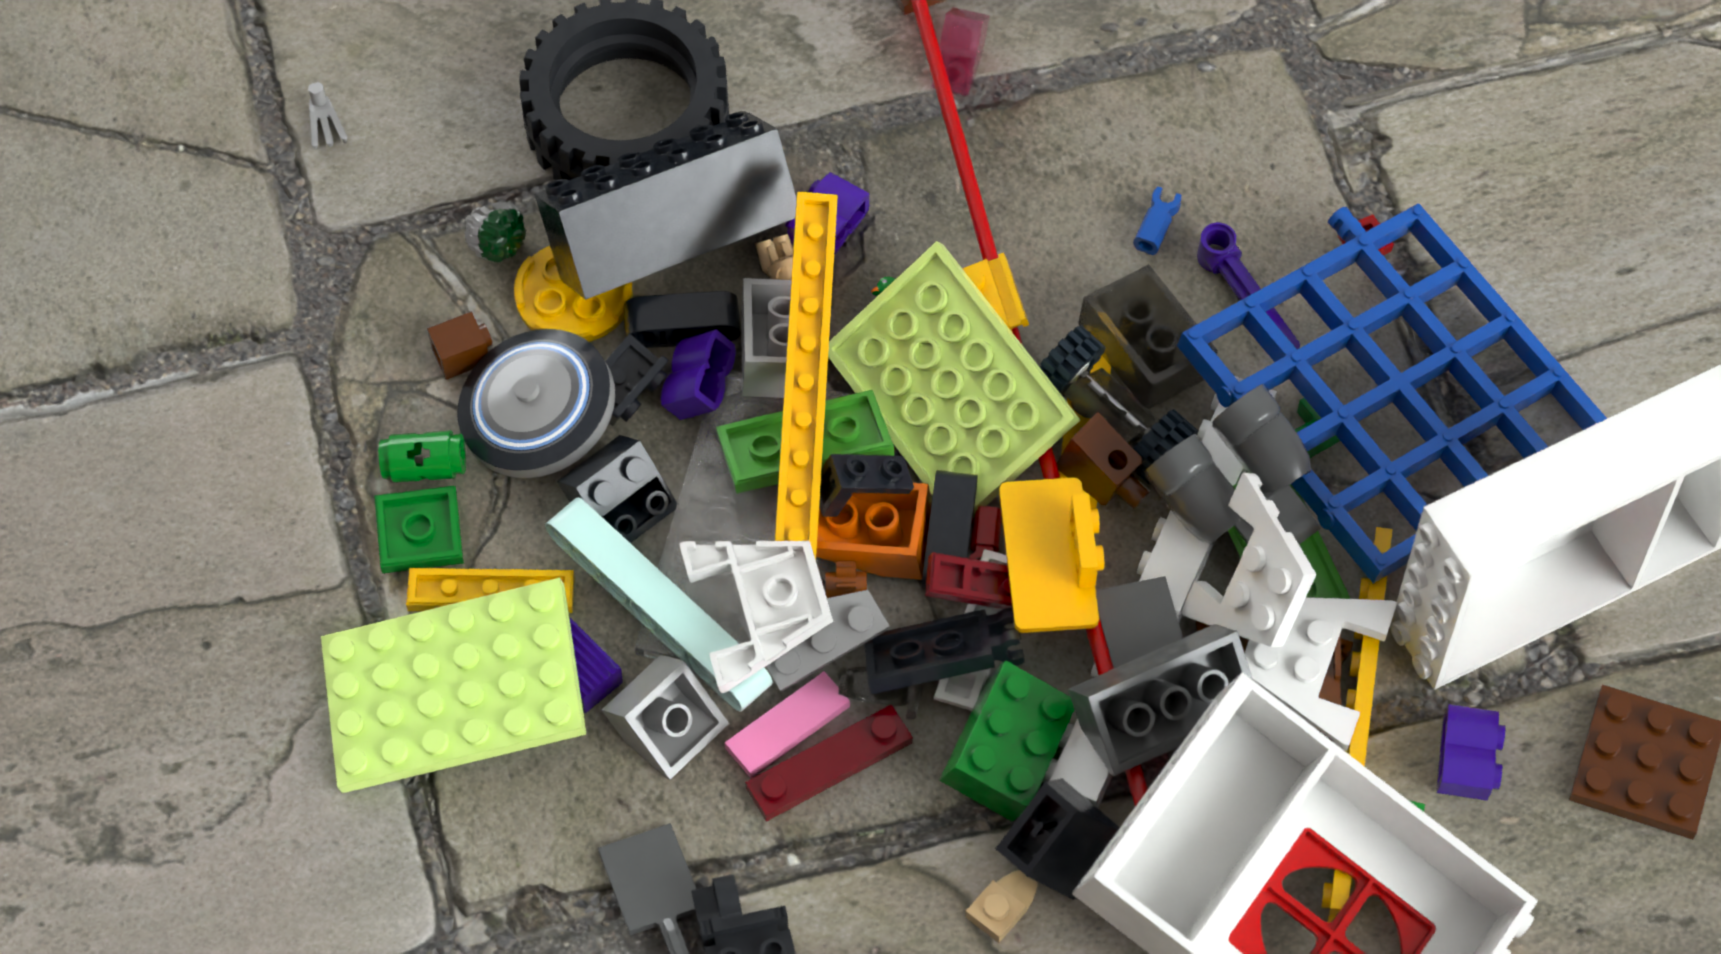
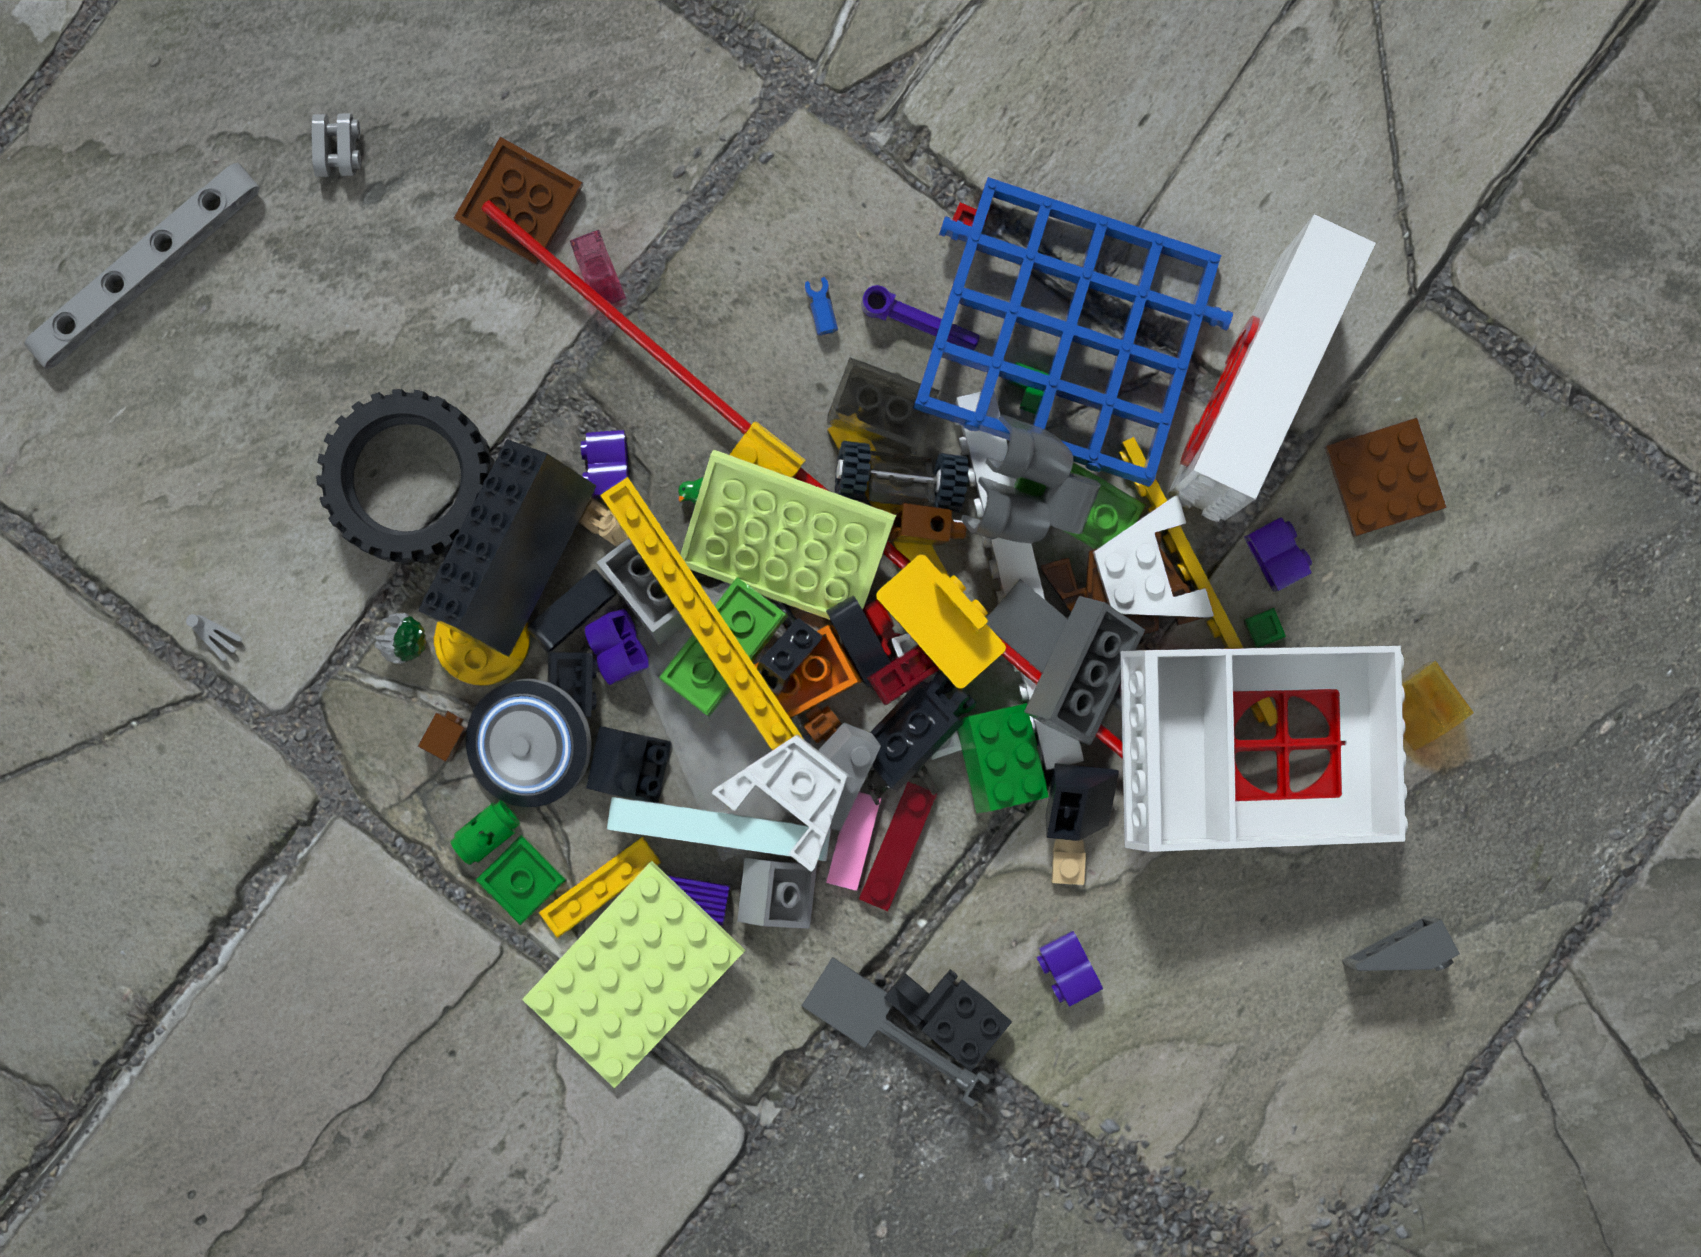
camera: 35 degrees left, 25 degrees up
(1267, 581) = (1100, 553): white wing -> none

